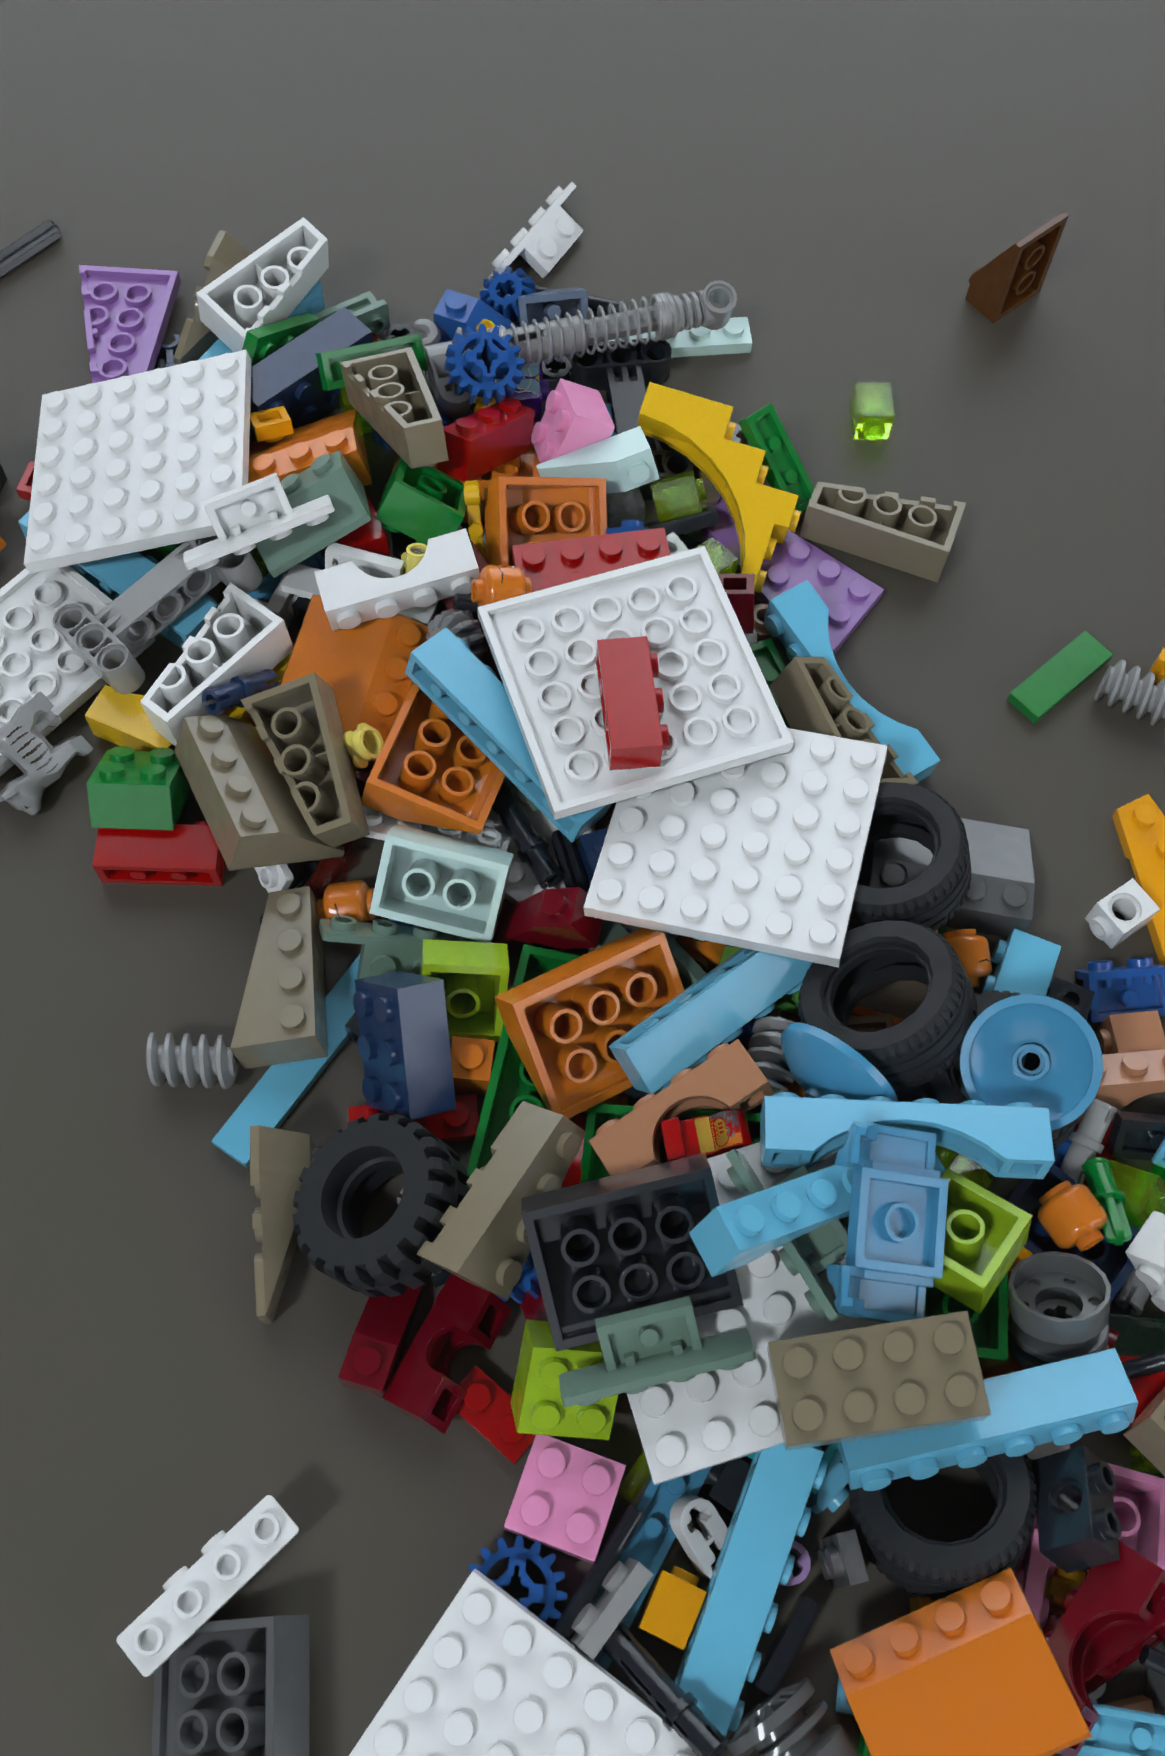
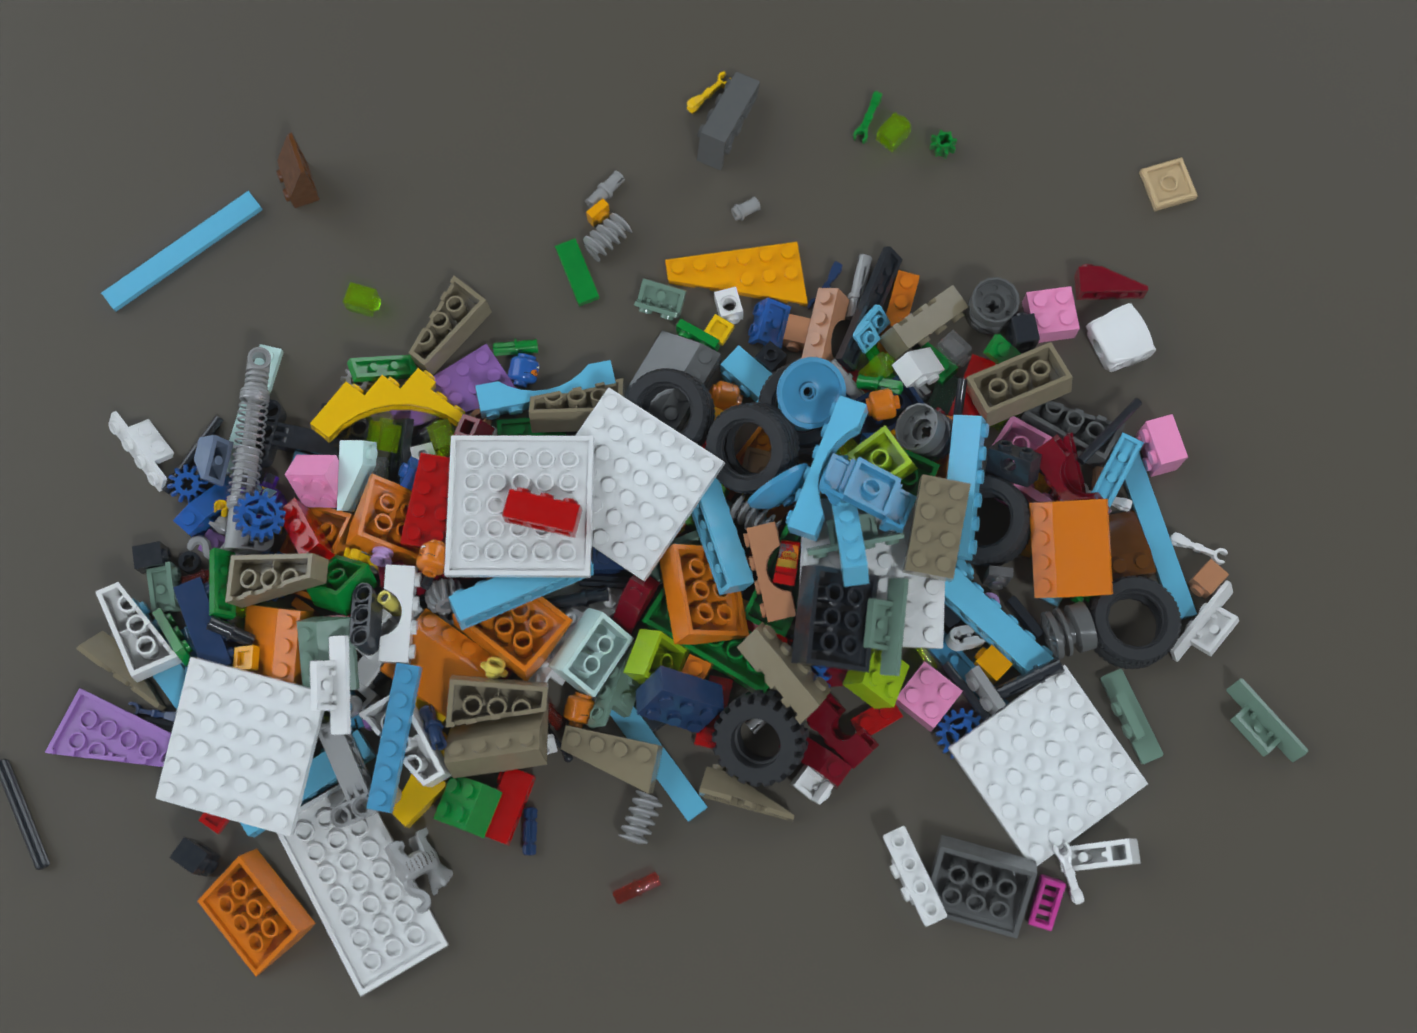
camera: 65 degrees left, 10 degrees up
(77, 1096) = (636, 888): none -> clear red axle
(130, 901) = (530, 831): none -> dark blue axle
(203, 636) = (394, 738): none -> dark azure plate
(303, 389) = (230, 631): none -> black axle
(331, 1333) = (812, 785): none -> white bracket
(373, 536) = (366, 619): none -> black beam
(378, 484) = (300, 605): none -> orange tile
(390, 284) = (150, 556): none -> black brick
(484, 535) = (381, 556): none -> lavender bush
(838, 195) = (181, 251): none -> medium azure tile
(866, 650) = (523, 370): none -> blue head
(897, 631) = (515, 347): none -> green axle
(1046, 874) = (693, 333): none -> green plate
(1072, 909) = (719, 328): none -> yellow tile
(1079, 806) = (661, 299): none -> sand green bracket

